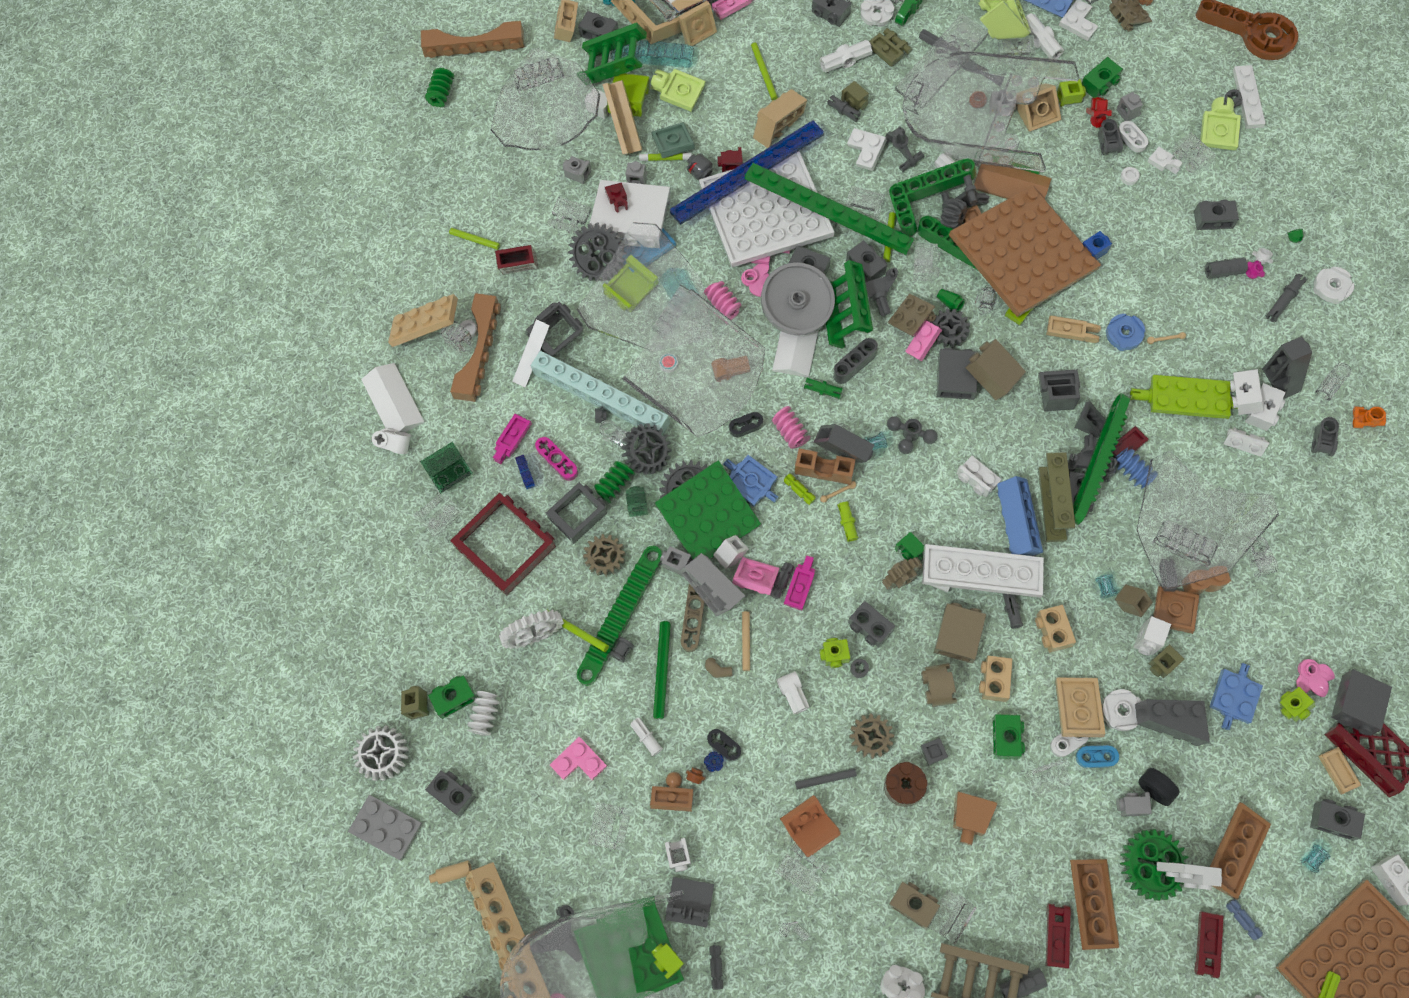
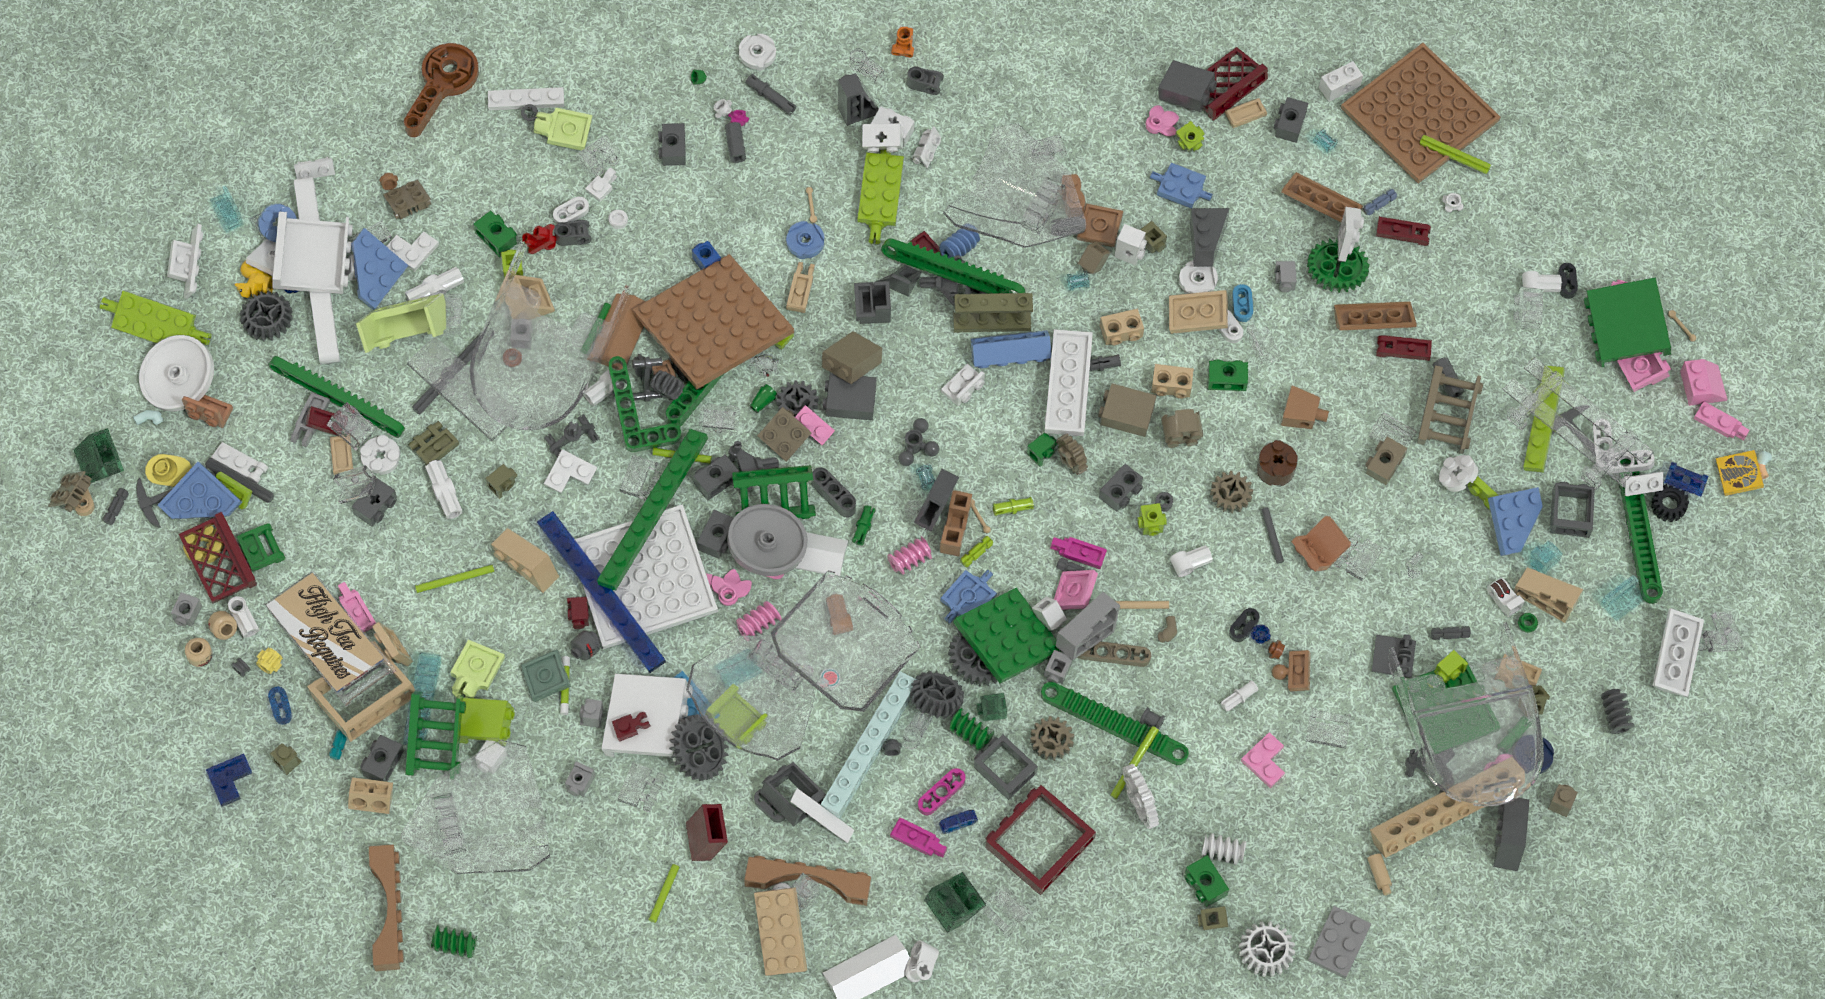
camera: 100 degrees left, 5 degrees down
(448, 796) = (1307, 879): dark grey brick -> none
(622, 117) = (523, 721): tan fence -> none
(661, 670) = (1170, 682): green axle -> none
(678, 855) = (1351, 664): white window -> none
(745, 420) = (907, 599): black beam -> none
(843, 108) = (514, 494): dark grey pin -> none
(934, 751) = (1243, 439): dark grey plate -> none
(1132, 103) = (533, 206): light grey brick -> none
(1159, 786) = (1269, 253): black tyre -> none

